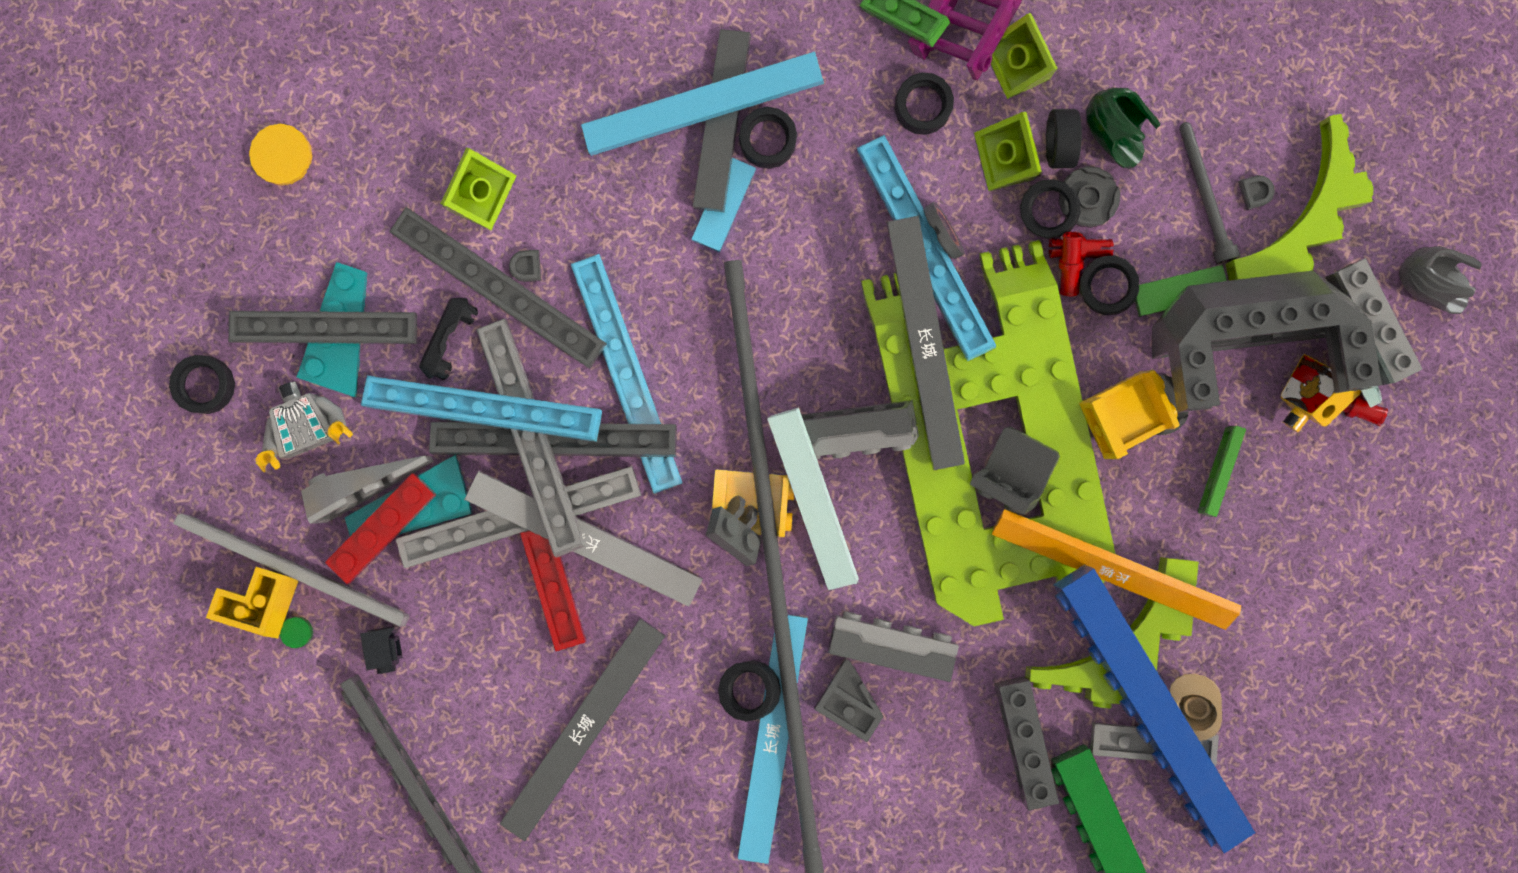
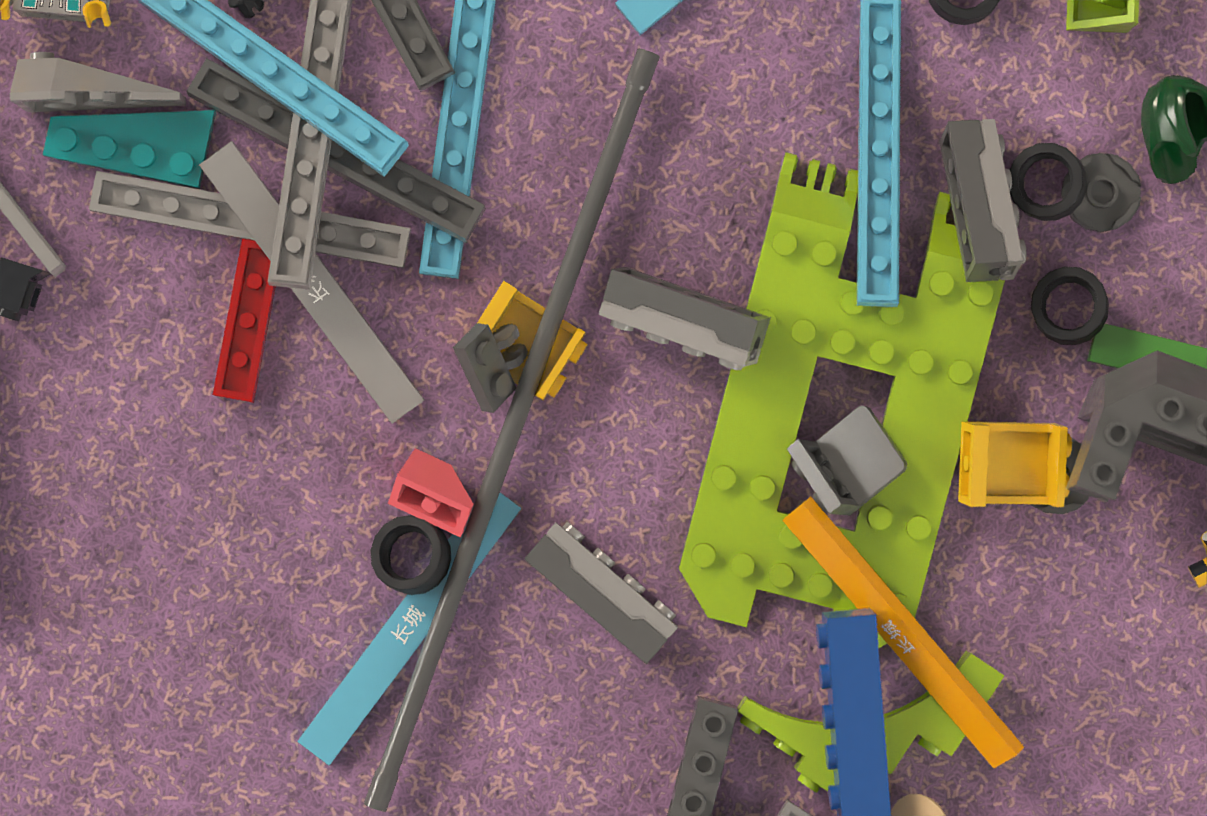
camera: 30 degrees right, 0 degrees up
(380, 528) = (86, 150): red plate -> none
(582, 729) = (196, 501): dark grey tile -> none
(742, 641) = (432, 493): none -> coral slope
(813, 498) = (598, 373): light aqua tile -> none
(850, 703) = (519, 630): dark grey wing -> none
(925, 342) = (819, 258): dark grey tile -> none
(946, 235) = (911, 144): dark grey tile -> none
(1008, 152) = (1032, 91): lime slope -> none
(1014, 245) = (982, 200): none -> dark grey piece
(1063, 138) = (1104, 108): black tyre -> none
(1071, 264) = (1038, 257): red pin -> none
(1090, 248) = (1059, 245): red pin -> none
(1221, 471) = (1087, 587): bright green tile -> none

